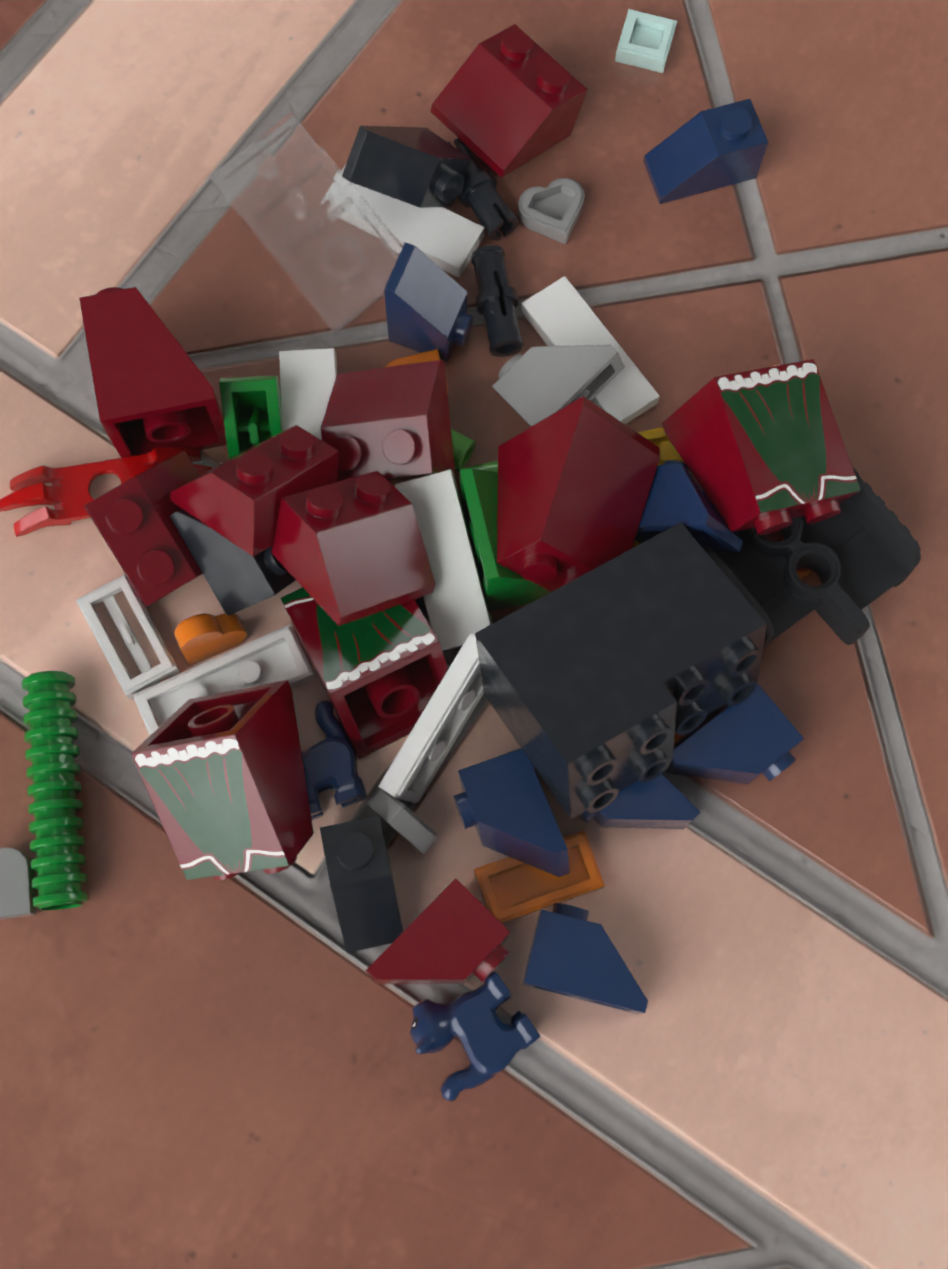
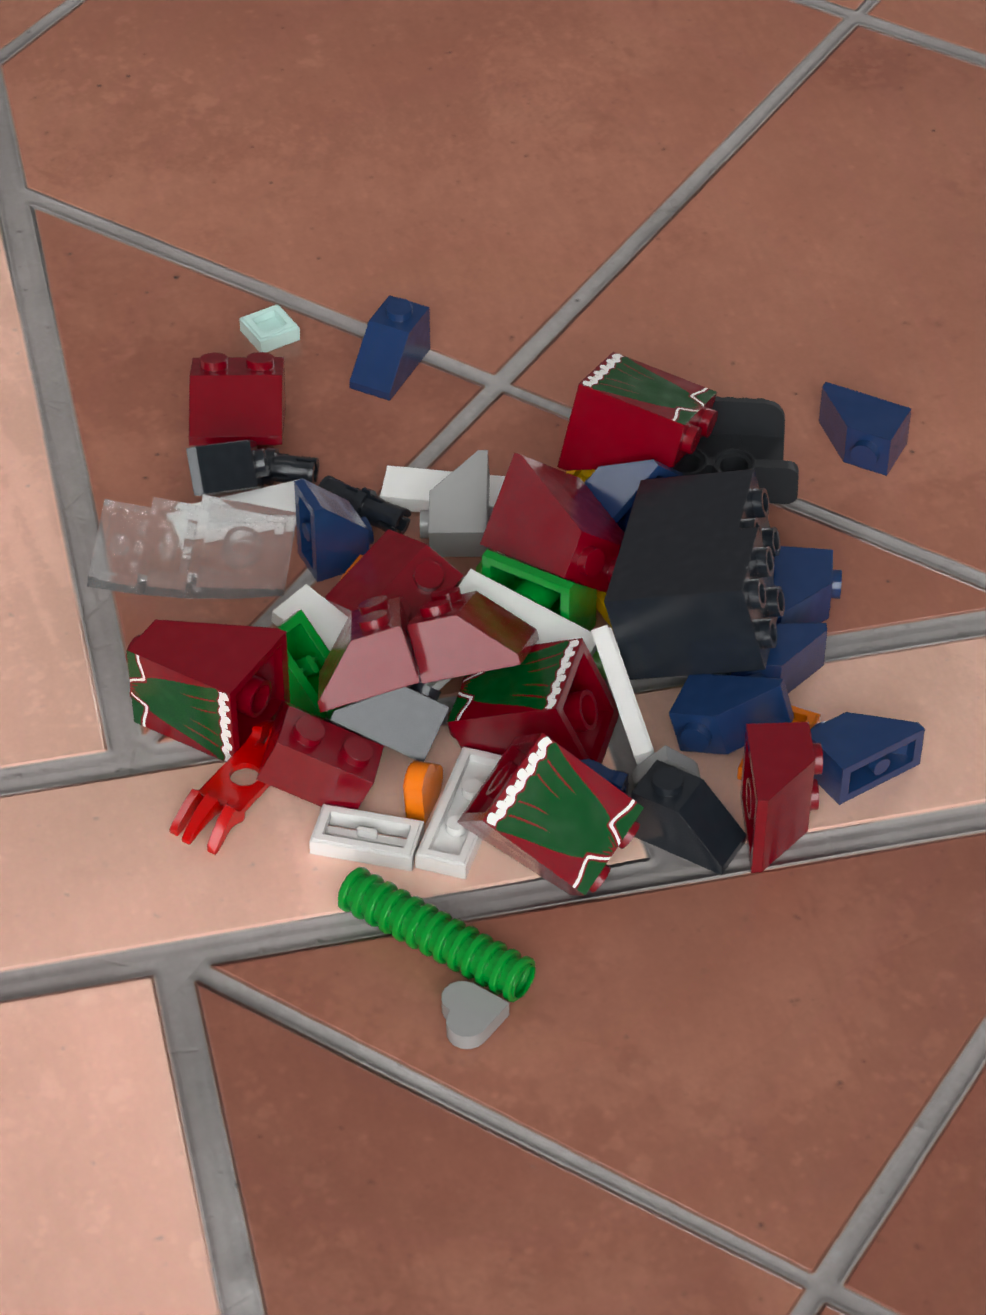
camera: 45 degrees left, 30 degrees down
(474, 1021) = (846, 828): dark blue animal -> none
(552, 209) = (331, 444): light grey tile -> none

